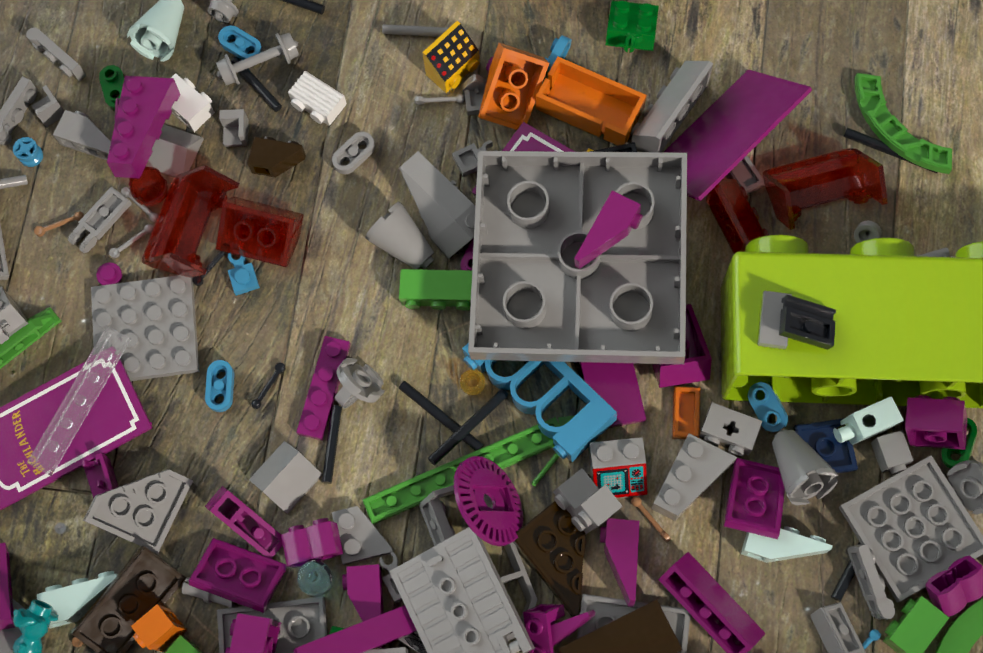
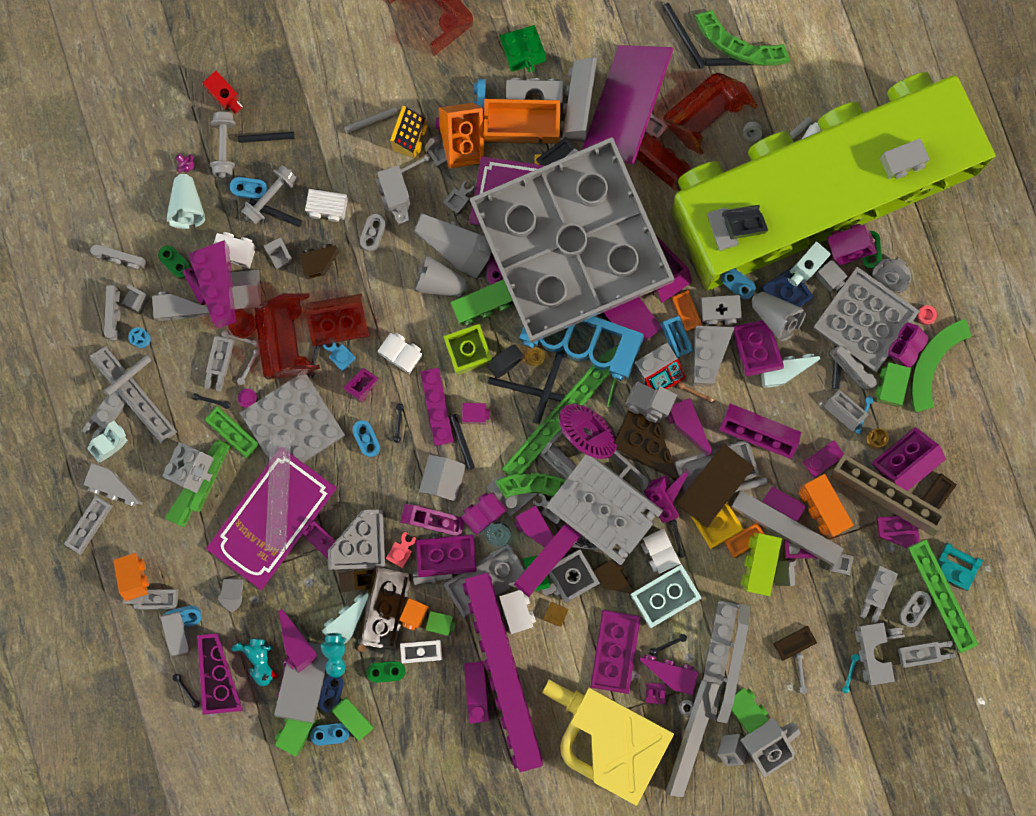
camera: 25 degrees left, 10 degrees up
(40, 231) = (179, 390): medium nougat hinge -> none
(70, 306) = (232, 432): none -> bright green tile
(82, 271) = (226, 404): none -> black hinge
(111, 551) = (355, 580): none -> dark brown slope
(187, 544) = (400, 553): none -> coral plate
(246, 319) = (361, 384): none -> magenta slope
(312, 303) = (400, 353): none -> white brick
(357, 383) = (461, 393): light grey tile -> none
(363, 416) = (475, 413): none -> magenta brick
(383, 532) = (529, 483): none -> bright green tile
(393, 335) = (468, 349): none -> lime brick
(400, 116) = (396, 194): none -> light grey hinge
(431, 369) = (505, 361): none -> black tyre
(610, 227) = (587, 209): magenta slope -> none
(626, 72) = (521, 89): none -> light grey arch
(655, 444) = (673, 337): none -> dark azure tile
(832, 92) = (684, 36): none -> black bar

